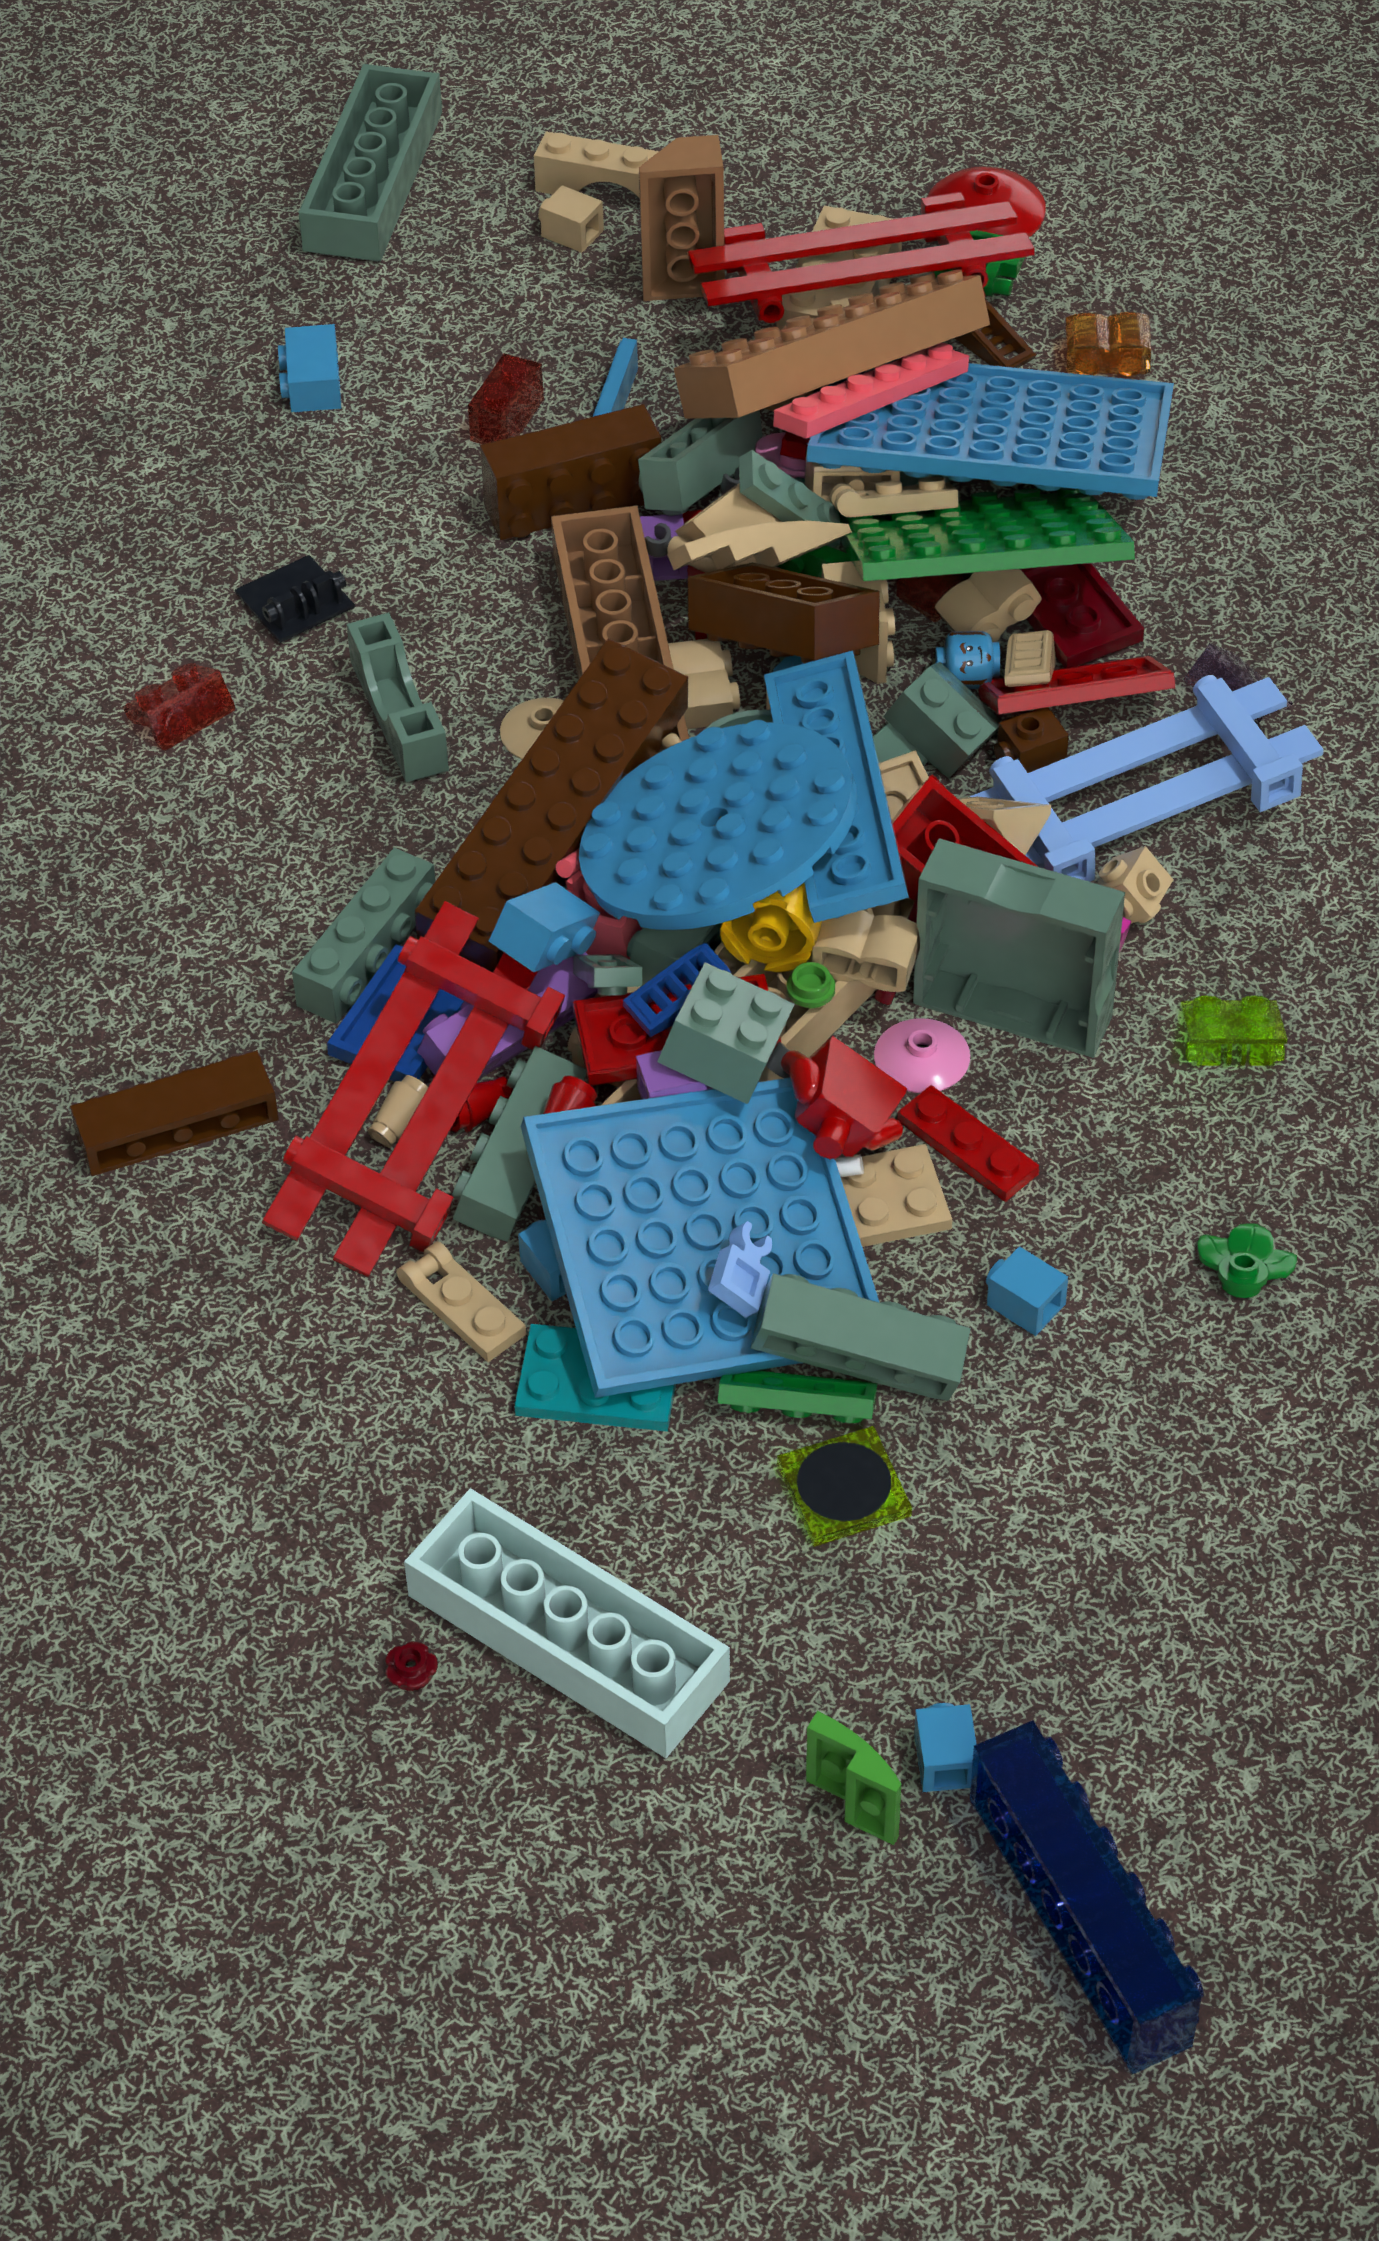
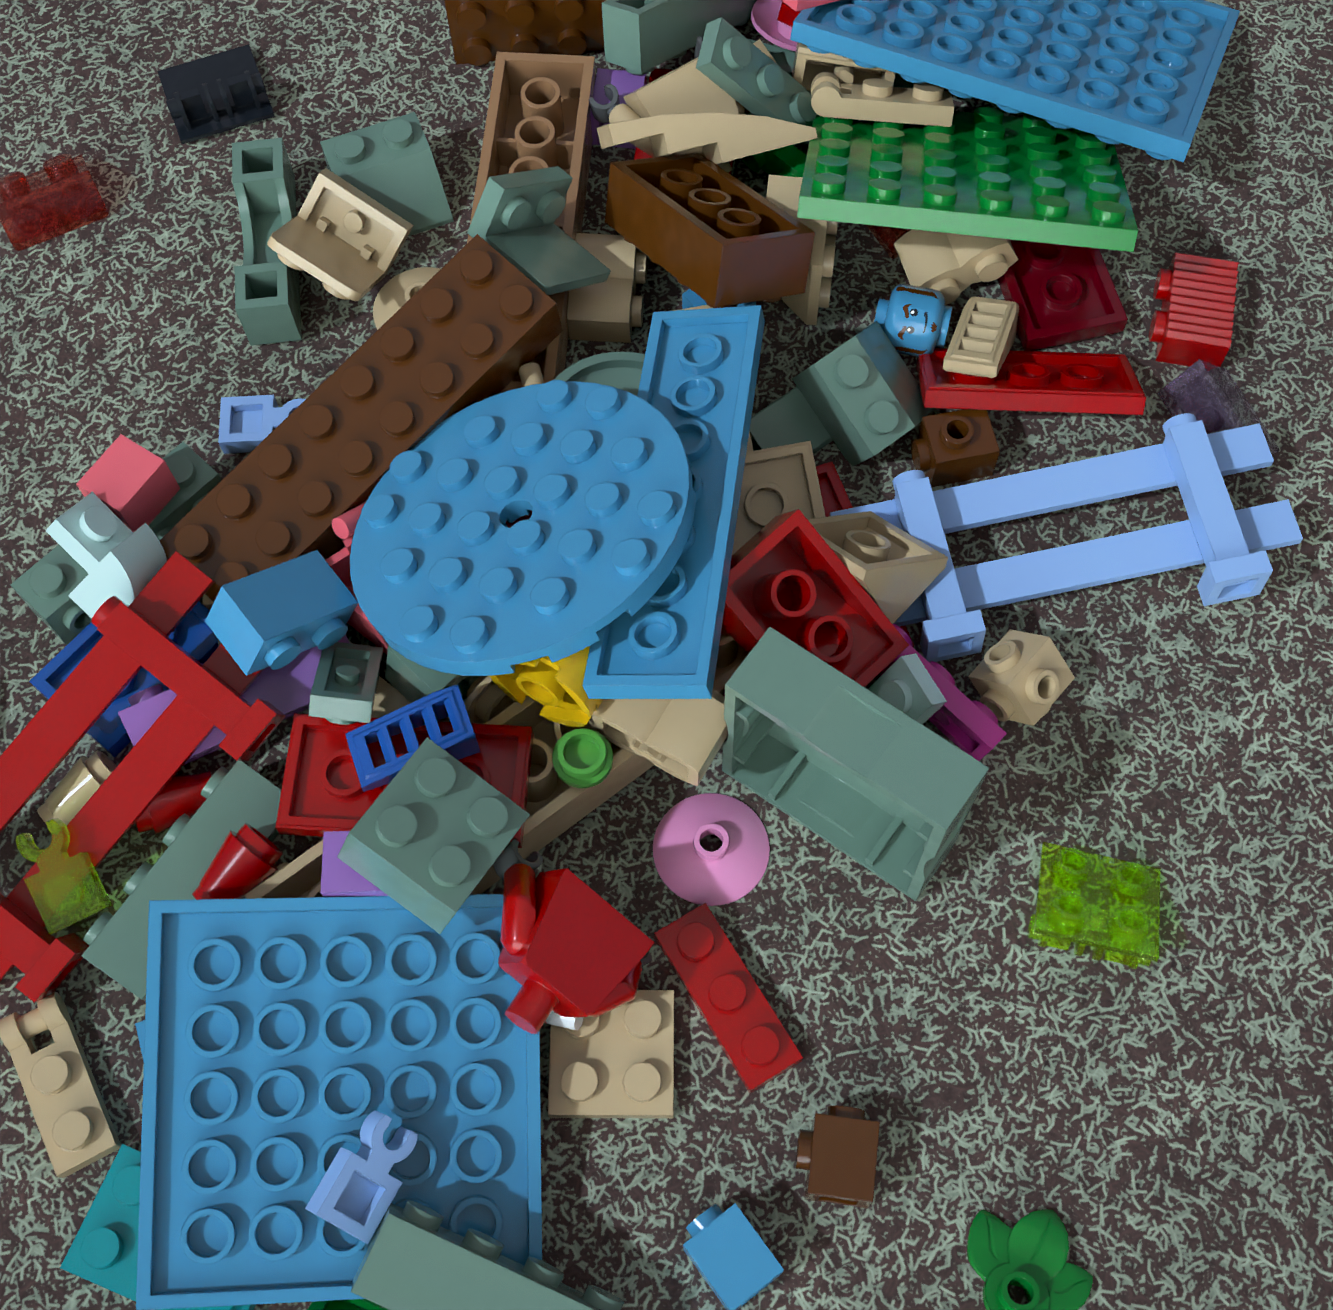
camera: 15 degrees right, 15 degrees up
(375, 875) = (130, 482): none -> coral brick
(392, 922) = (113, 555): none -> light aqua brick
(422, 1160) = (66, 886): none -> clear neon green plate
(437, 834) = (249, 420): none -> light blue plate
(467, 677) = (341, 238): none -> tan bracket
(481, 636) = (394, 168): none -> sand green slope
(630, 620) = (518, 222): none -> sand green bracket
(1087, 1217) = (839, 1157): none -> reddish brown brick
(1196, 611) = (1194, 310): none -> red brick

